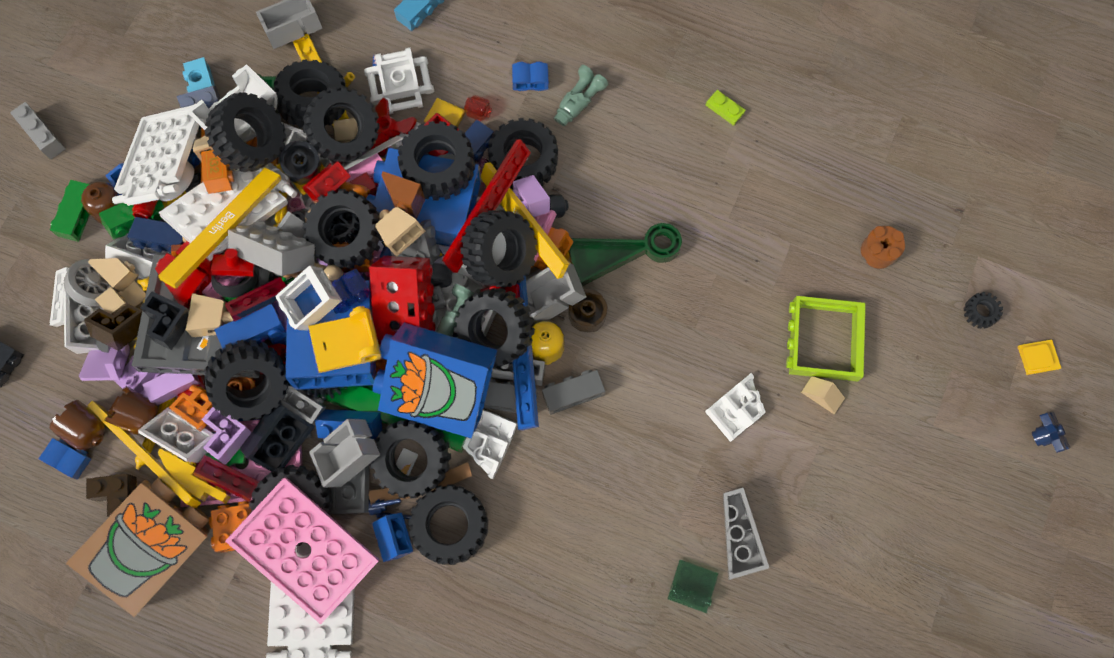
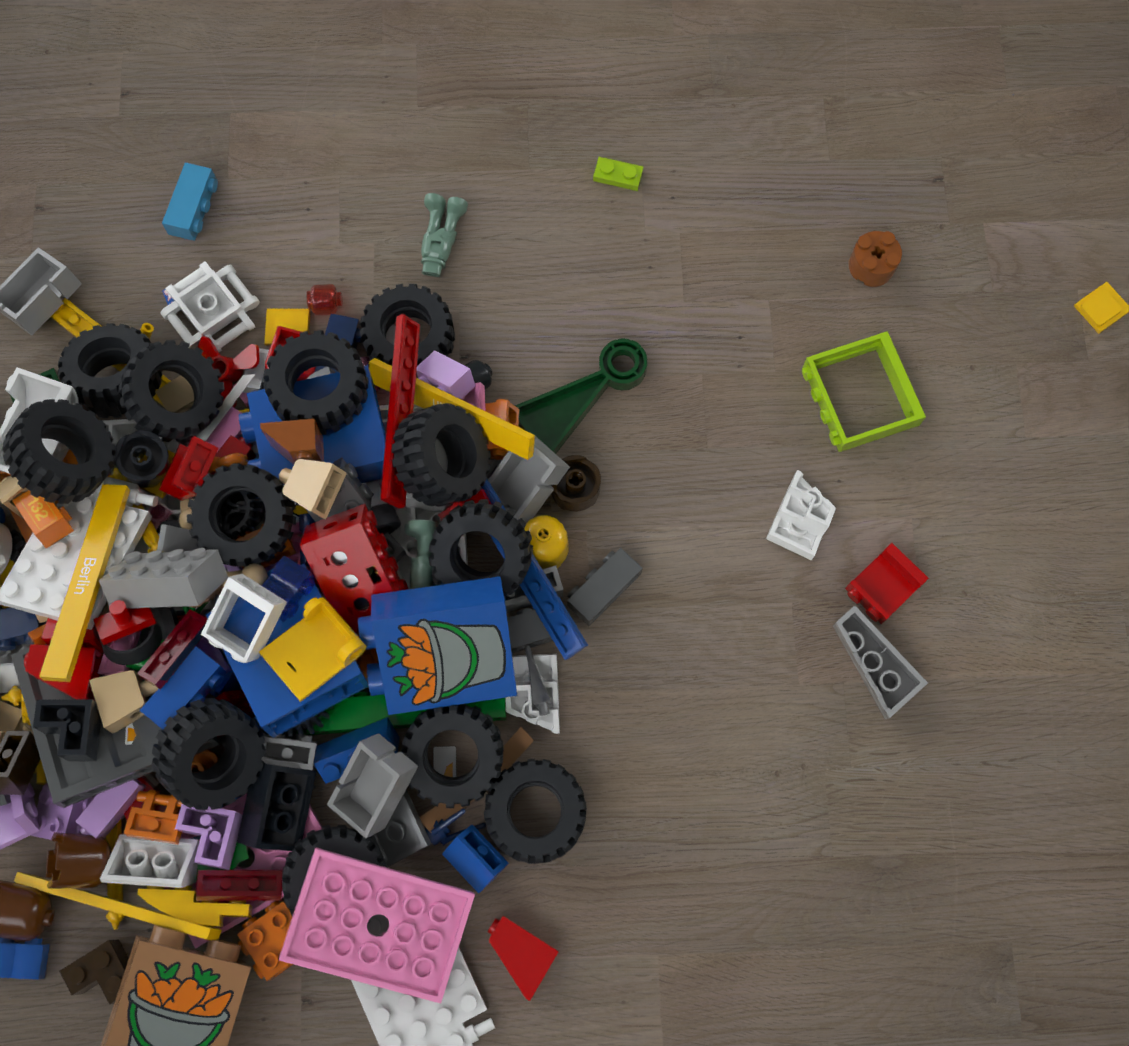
camera: 25 degrees left, 0 degrees up
(392, 618) = (522, 954): none -> red slope
(491, 444) = (539, 694): none -> flat silver piece
(530, 76) = (369, 234): blue brick -> none
(693, 586) = (850, 746): clear green hinge -> none
(775, 483) = (886, 584): none -> red panel
(824, 393) = (889, 456): tan slope -> none
(977, 319) = (1012, 292): black tyre -> none

